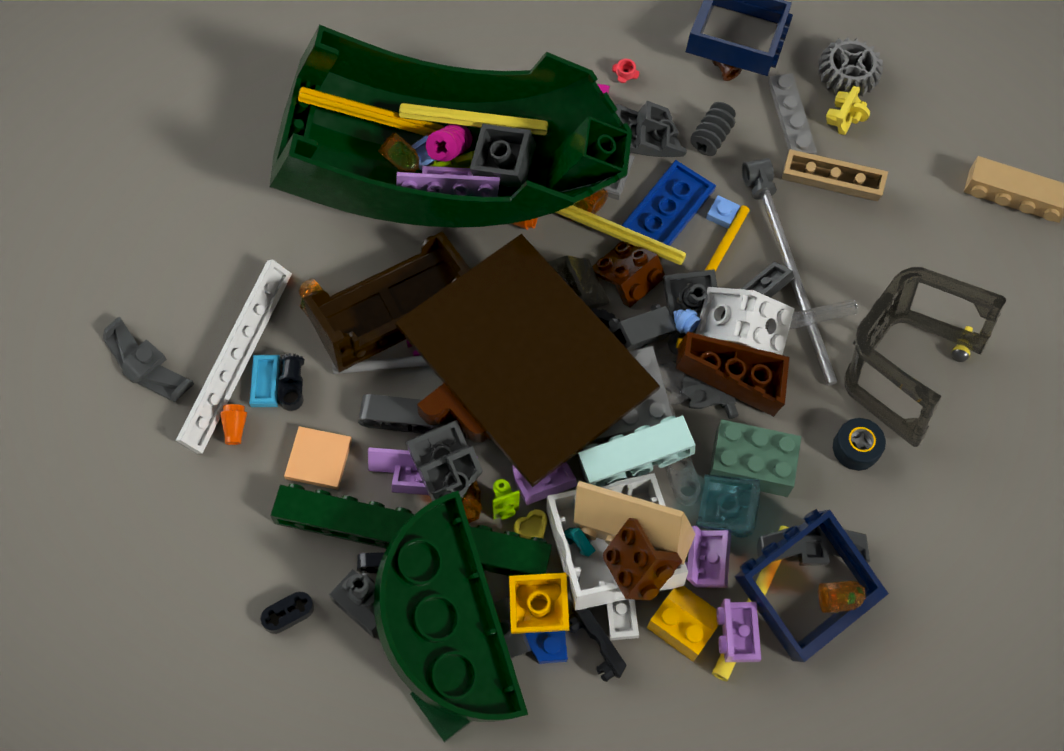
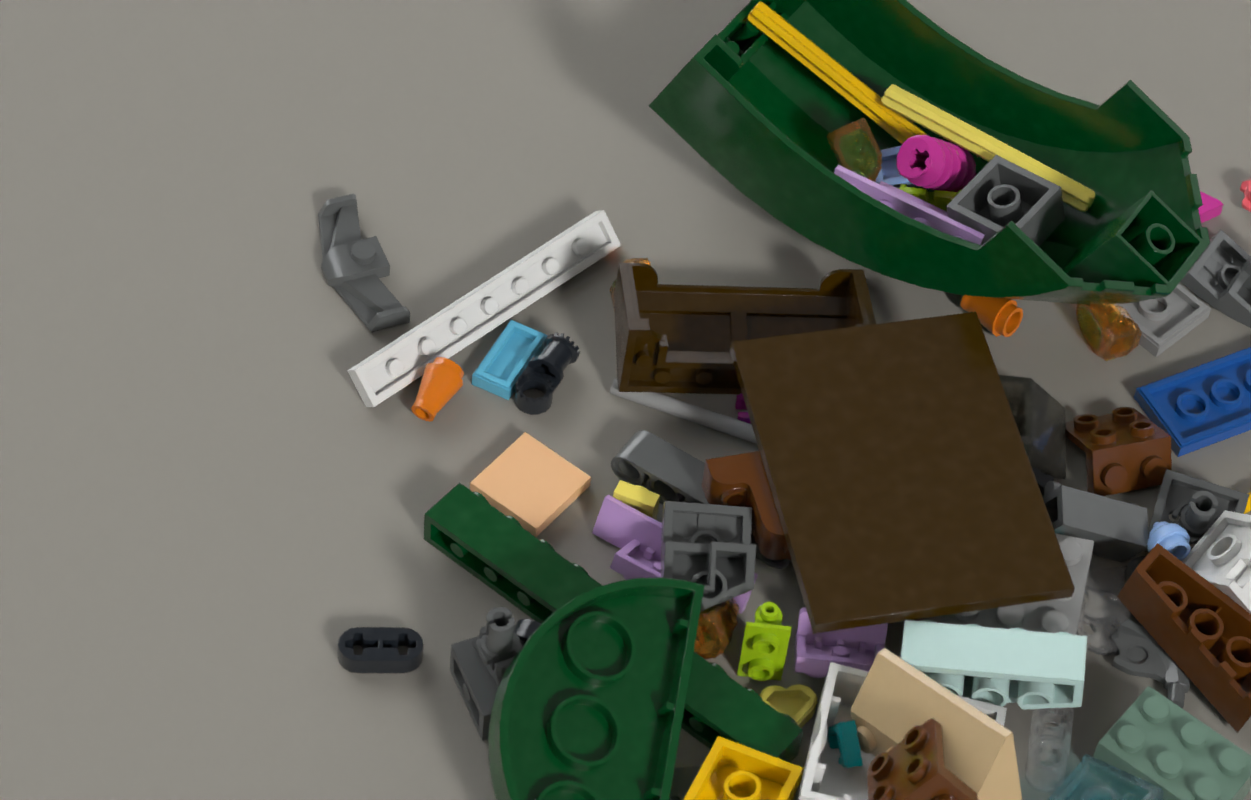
camera: 25 degrees right, 15 degrees down
(386, 440) = (638, 498): none -> light yellow plate
(623, 234) = (1128, 389): light yellow axle -> none

